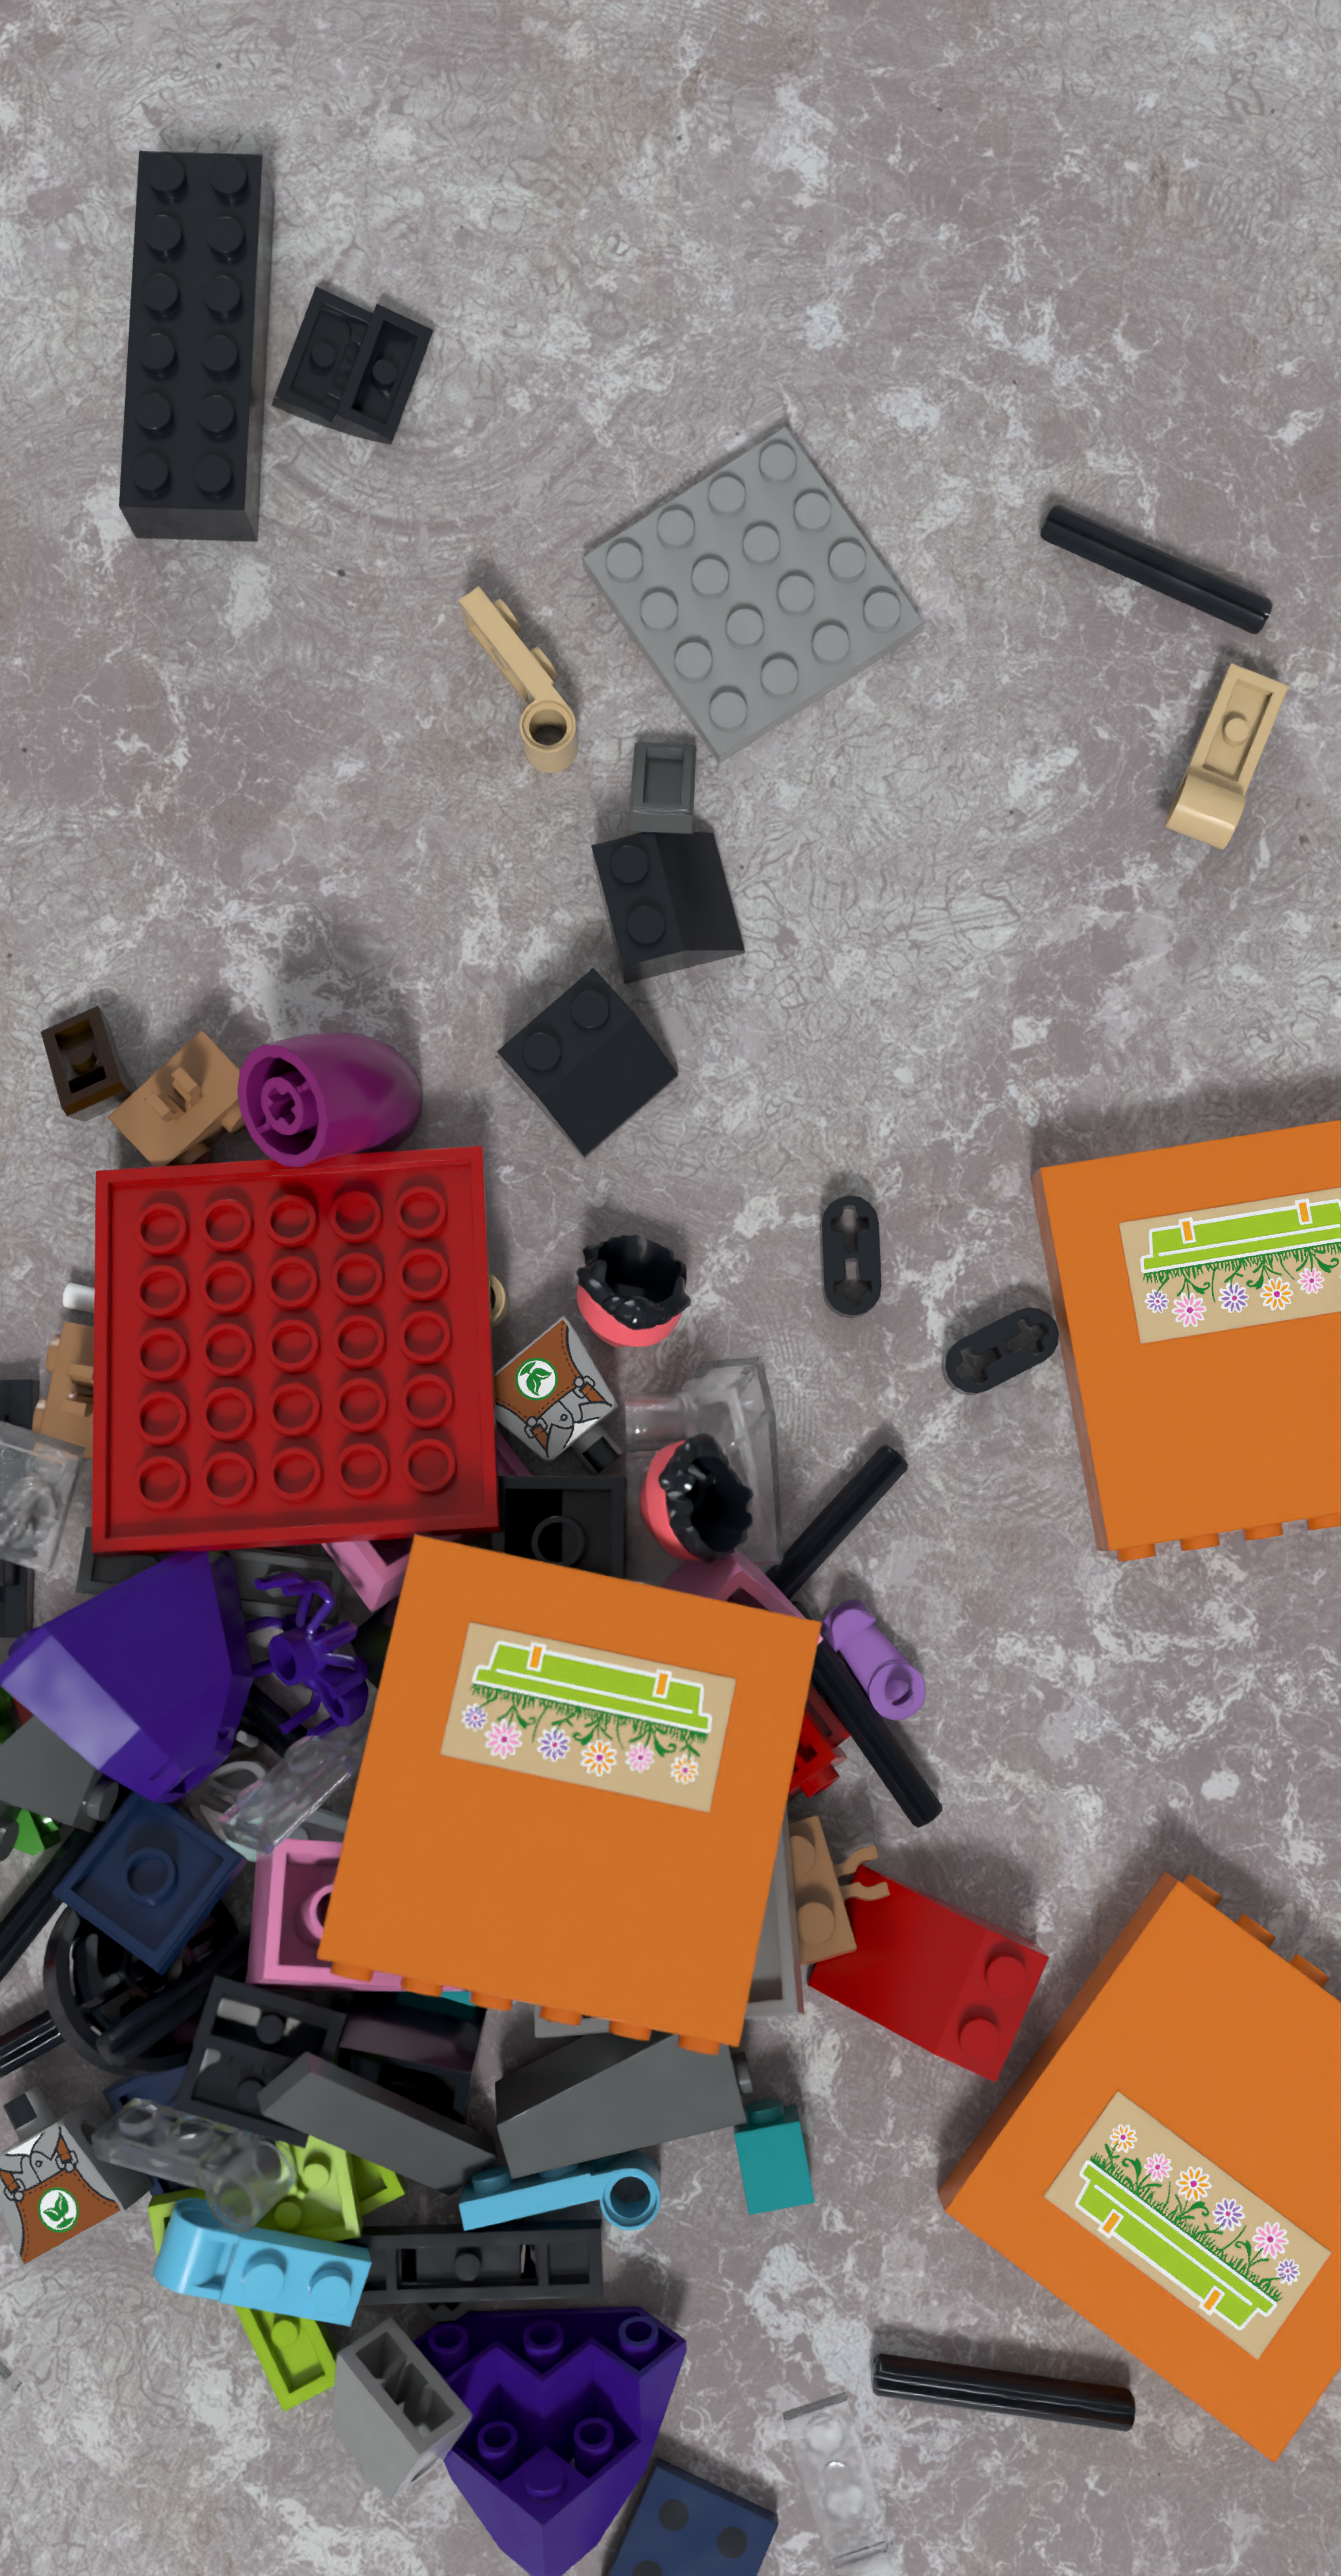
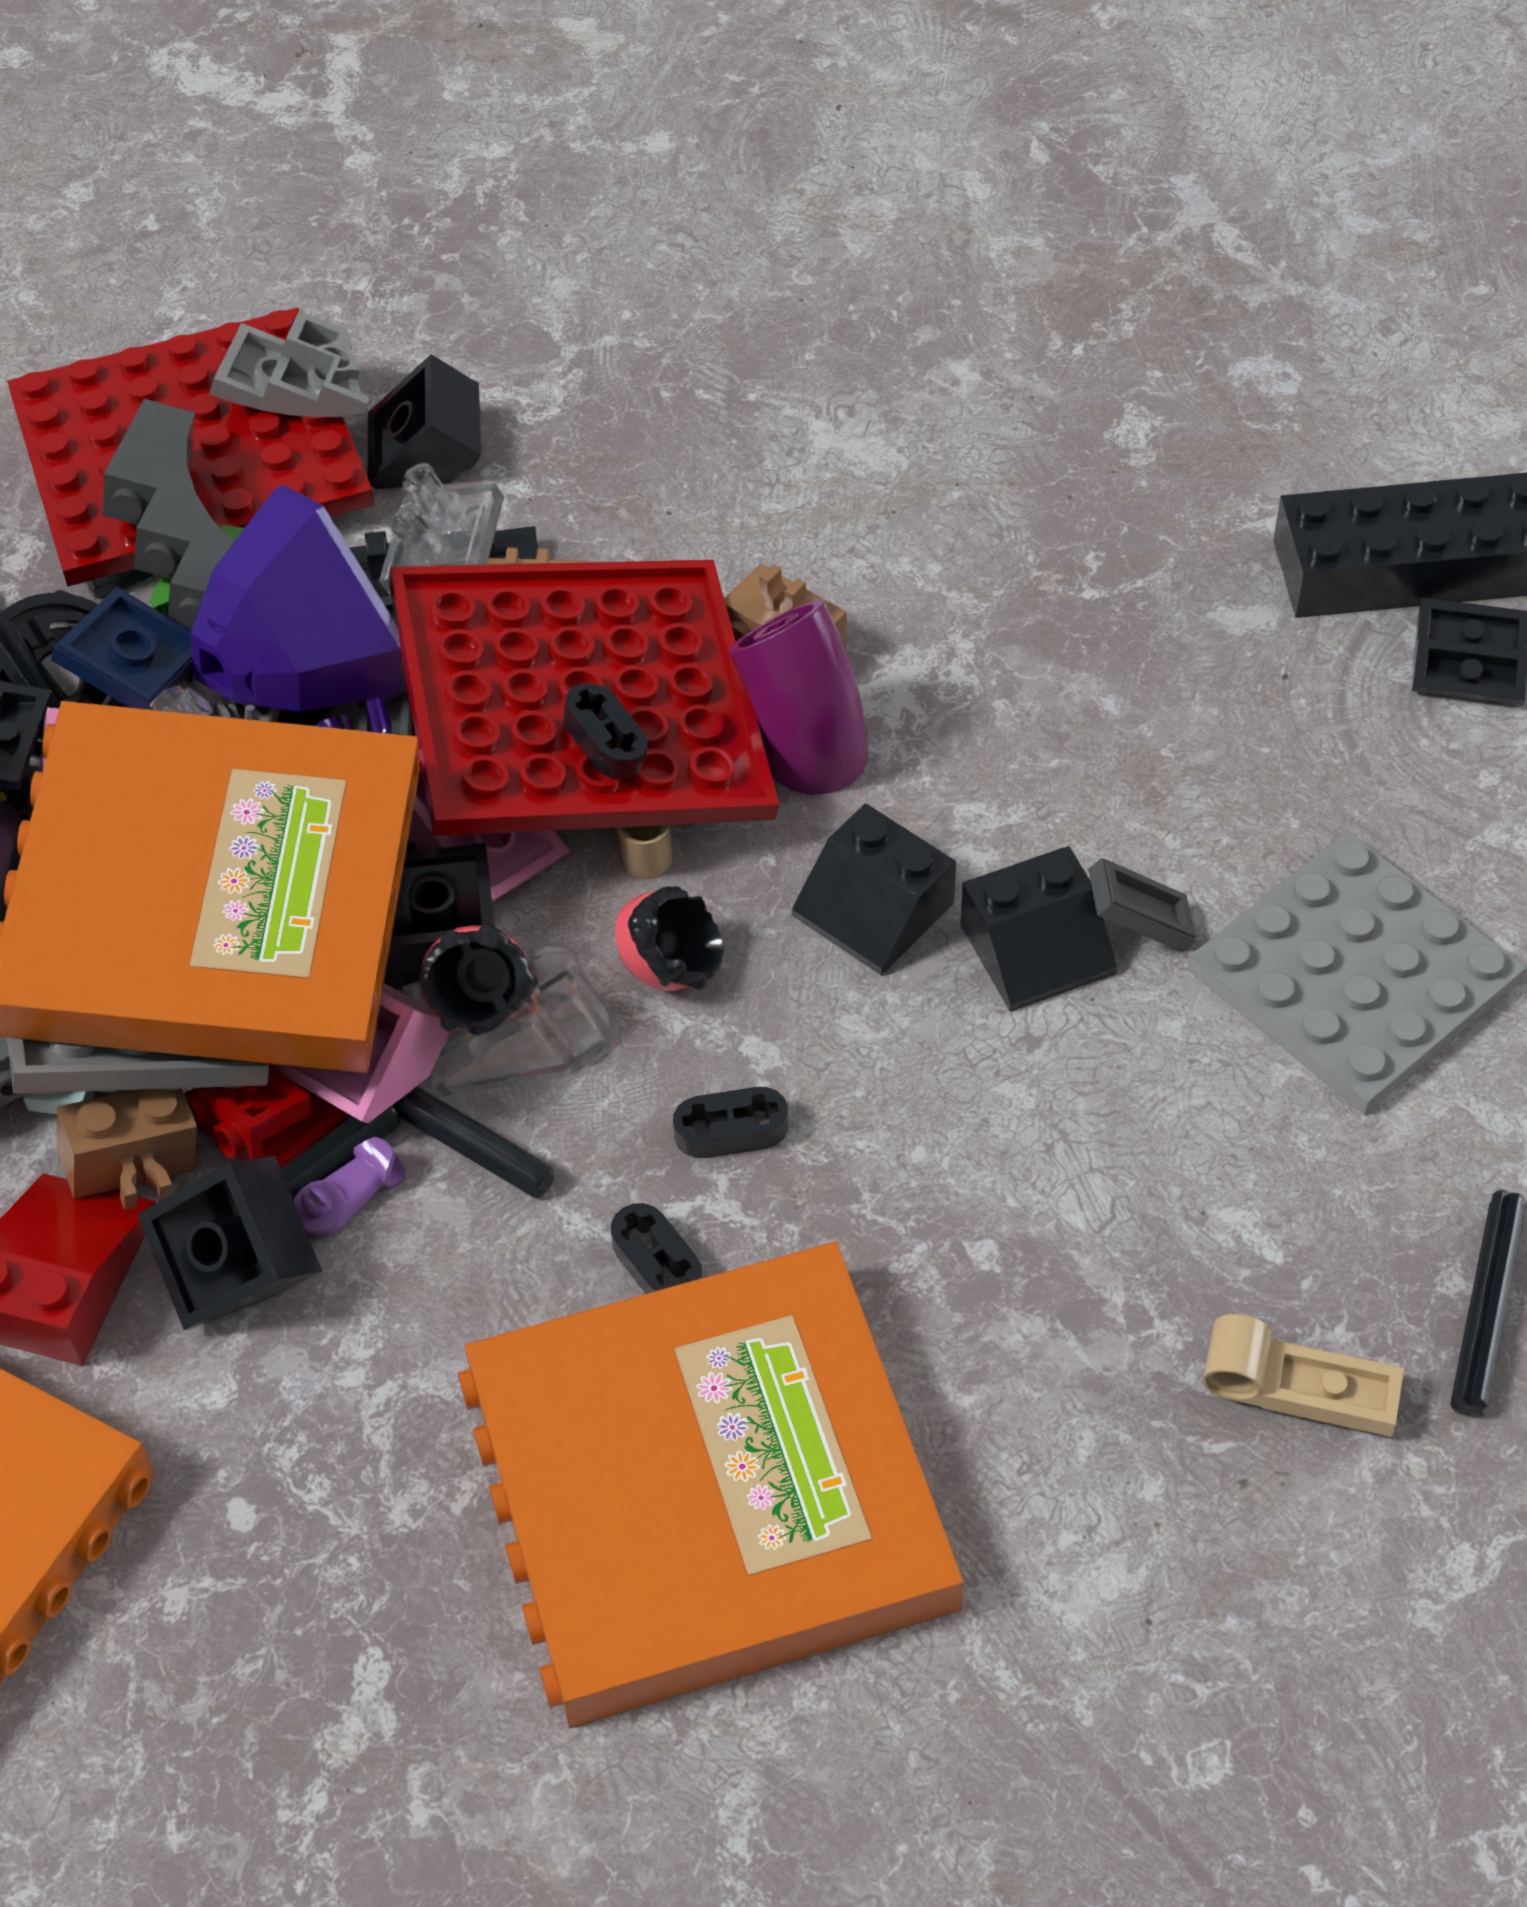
camera: 85 degrees right, 30 degrees down
(86, 1065) = (803, 551): dark brown slope -> none
(373, 1309) = (596, 734): none -> black beam
(529, 675) = (1184, 821): tan plate -> none
(557, 1400) = (566, 899): torso -> none
(953, 1783) = (229, 1241): none -> black slope

